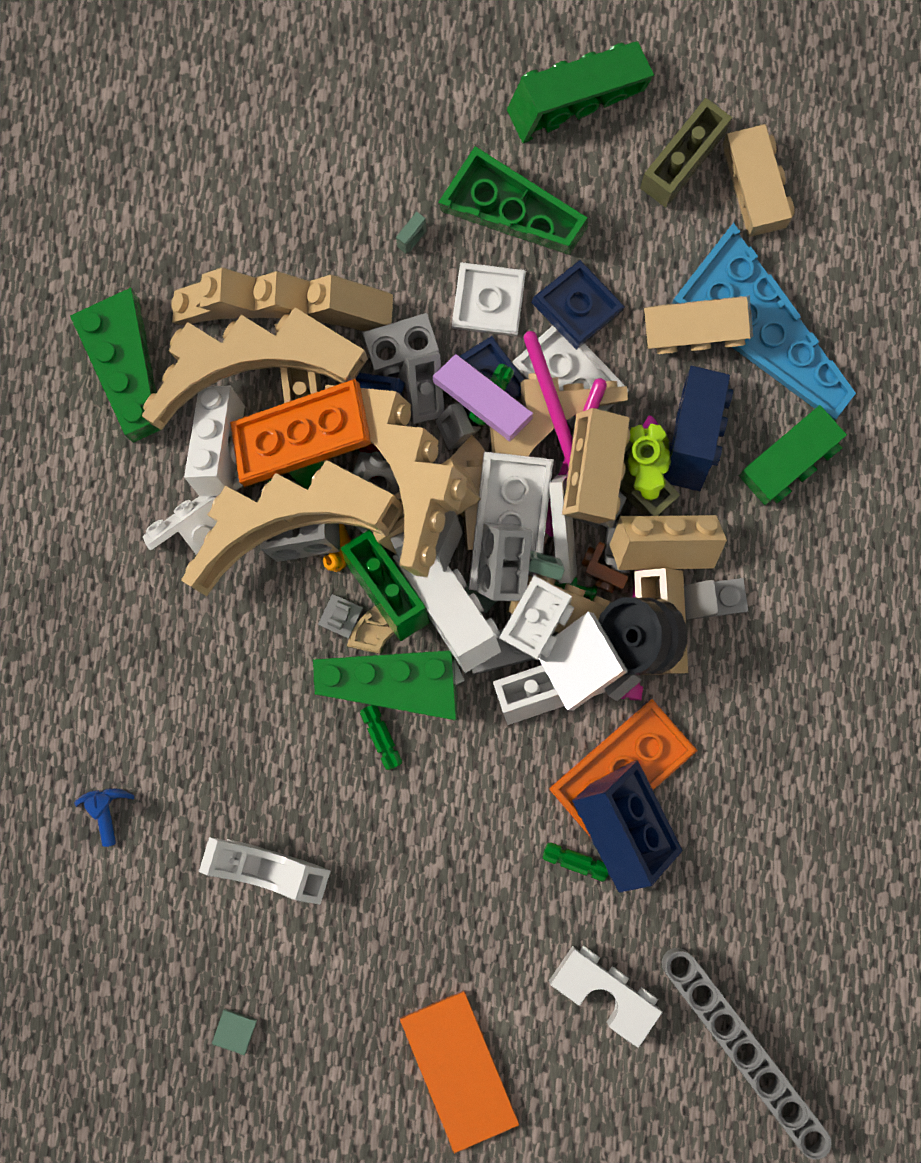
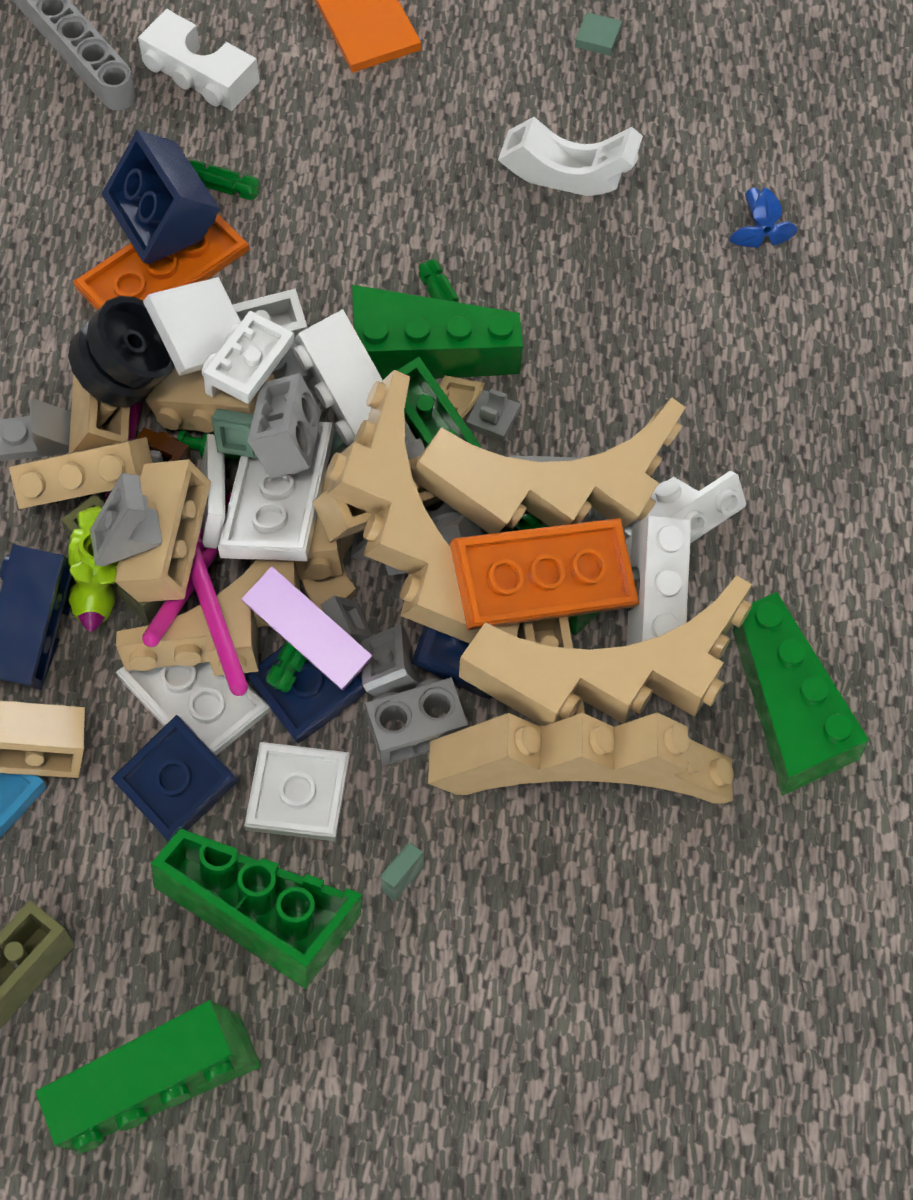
camera: 175 degrees right, 20 degrees down
(622, 448) = (124, 523): none -> light grey slope

